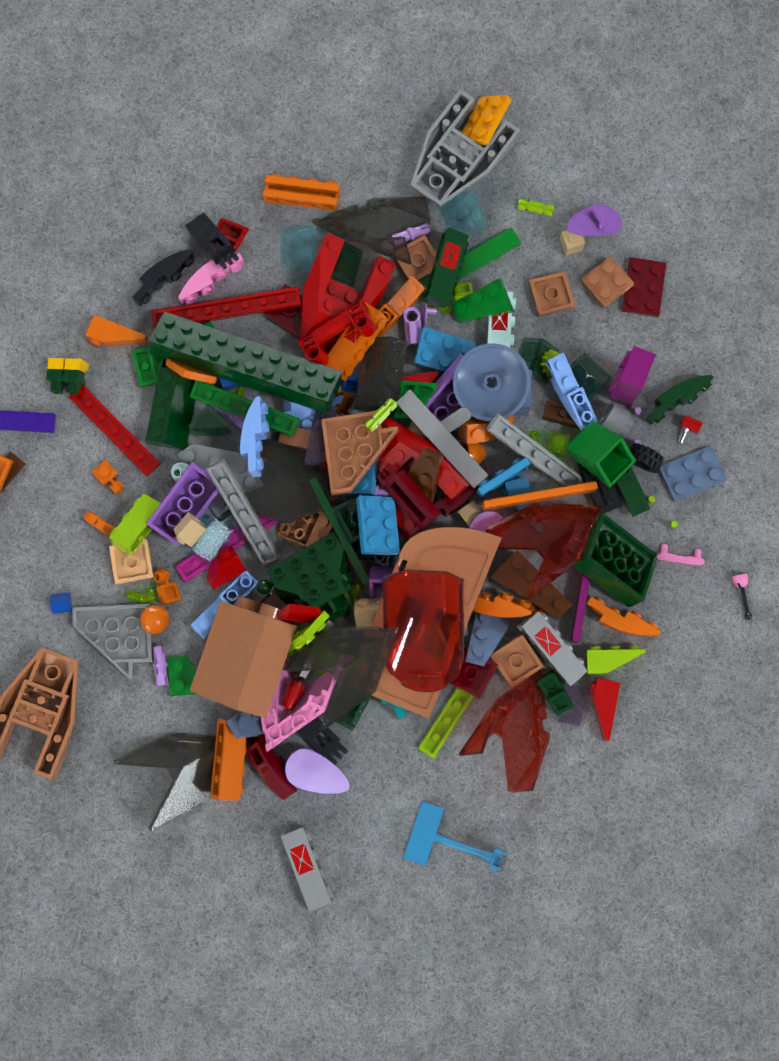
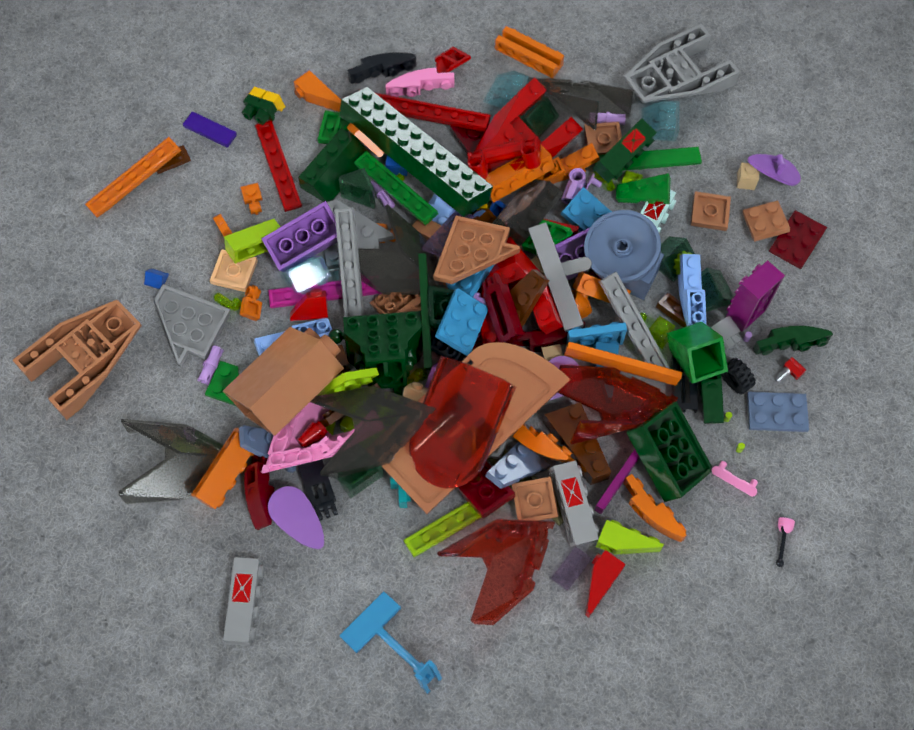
camera: 25 degrees right, 15 degrees down
(154, 619) = (226, 323): orange hair -> none
(189, 530) = (294, 257): tan brick -> none
(204, 233) = (435, 45): black hinge -> none
(253, 431) = (389, 204): light blue slope -> none
(299, 613) = (351, 356): red tile -> none
(381, 414) = (510, 230): lime axle -> none
(486, 118) = (715, 53): light orange plate -> none
(536, 207) = (727, 140): lime axle -> none
(555, 692) = (558, 547): dark green slope -> none

